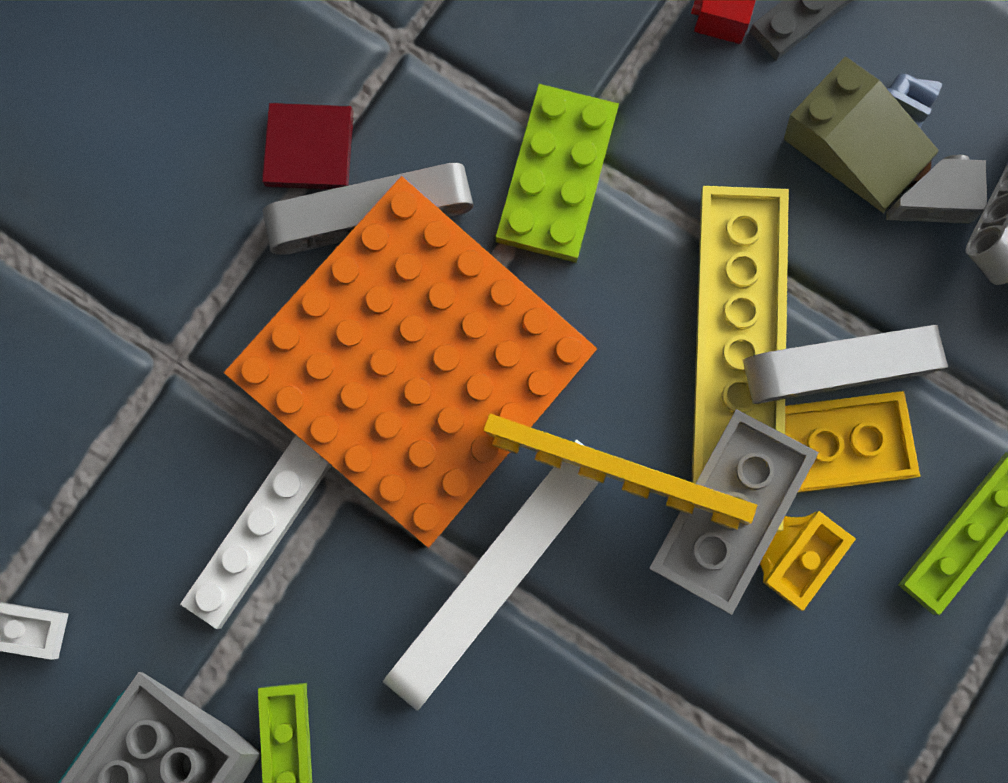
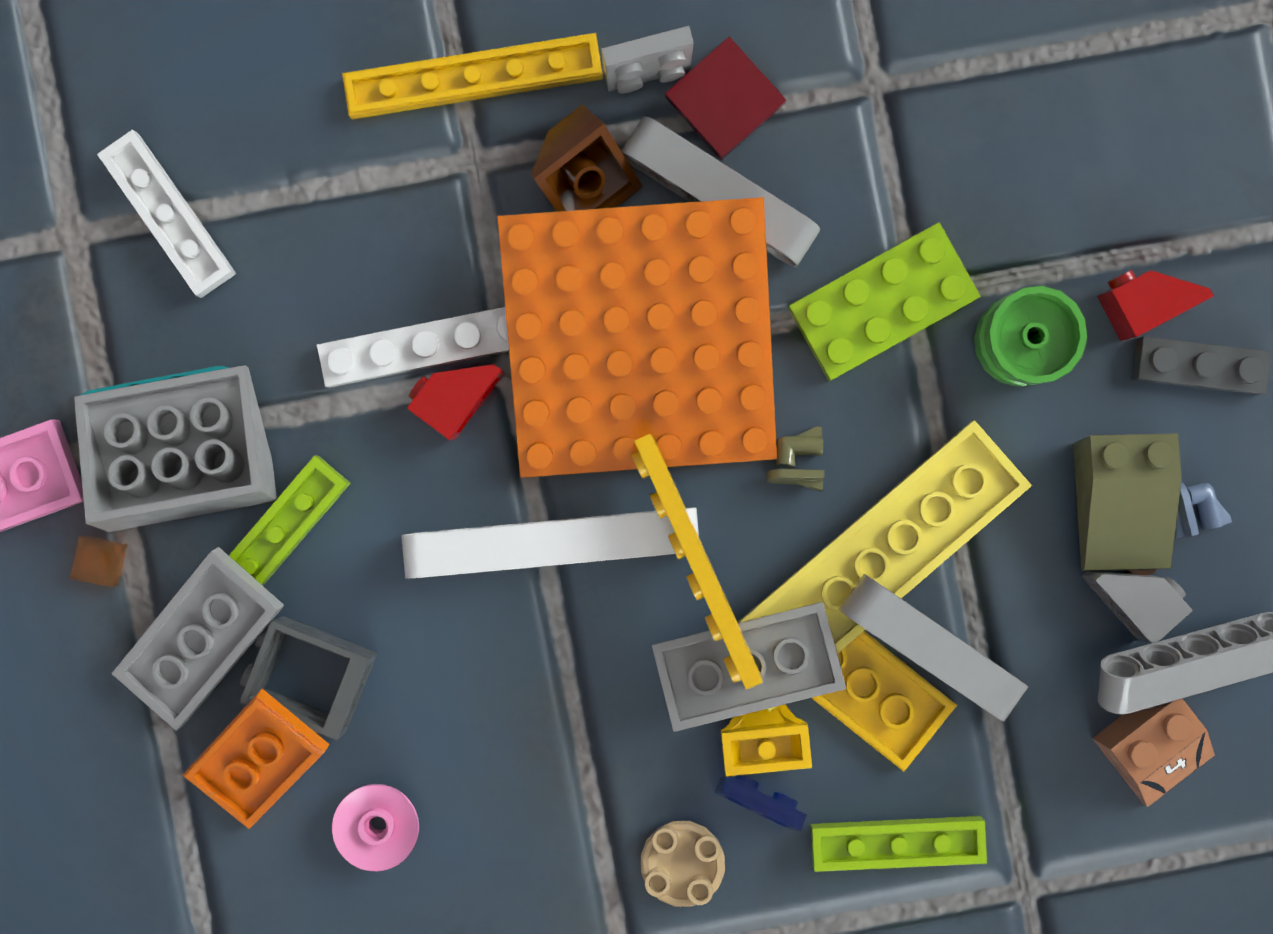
camera: 45 degrees right, 10 degrees up
(111, 304) = (472, 76): none -> yellow tile
(226, 167) = (646, 59): none -> light grey plate
(251, 280) = (583, 165): none -> reddish brown slope
(320, 538) = (453, 397): none -> red slope
(606, 318) = (806, 443): none -> olive piece
(680, 93) = (1053, 326): none -> bright green wheel
(842, 713) = (682, 864): none -> tan dish
(862, 598) = (777, 808): none -> clear blue plate

